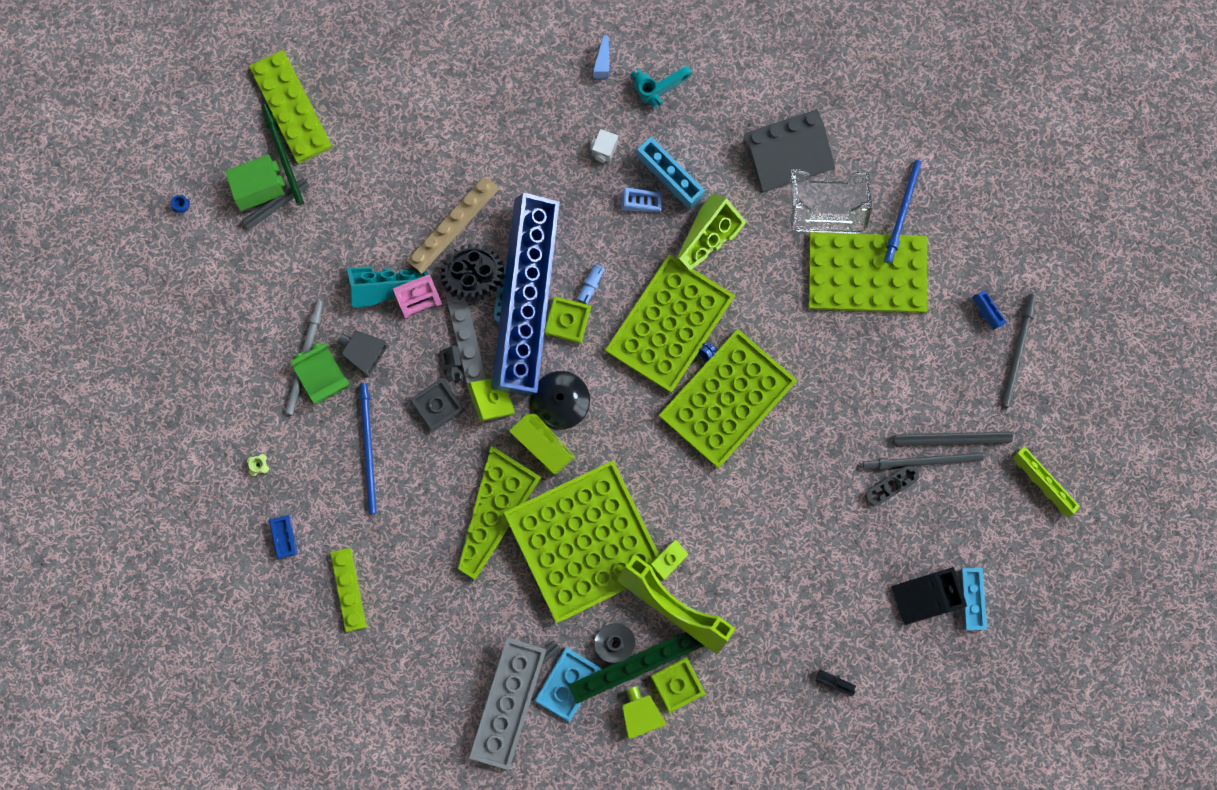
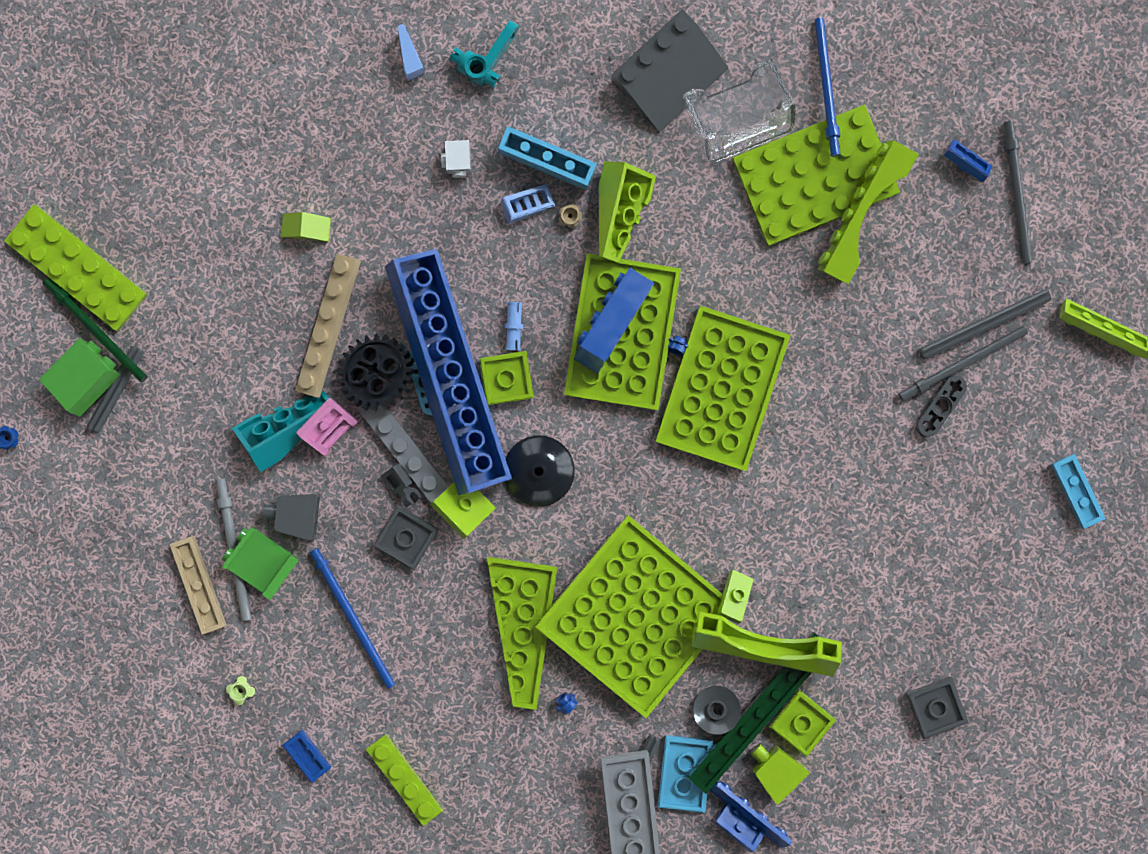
camera: 25 degrees left, 10 degrees up
(265, 371) = (198, 585): none -> tan plate
(471, 148) = (306, 226): none -> lime slope
(500, 585) = (566, 703): none -> blue plate
(543, 443) = (543, 530): lime wedge -> none
(596, 742) = (743, 822): none -> blue bracket
(665, 308) = (613, 320): none -> blue wedge
(669, 218) = (570, 209): none -> tan plate
(790, 721) = (937, 707): none -> dark grey plate
(836, 683) = (967, 645): black axle -> none
(862, 339) = (892, 164): none -> lime arch
(929, 596) = (1031, 510): black slope -> none

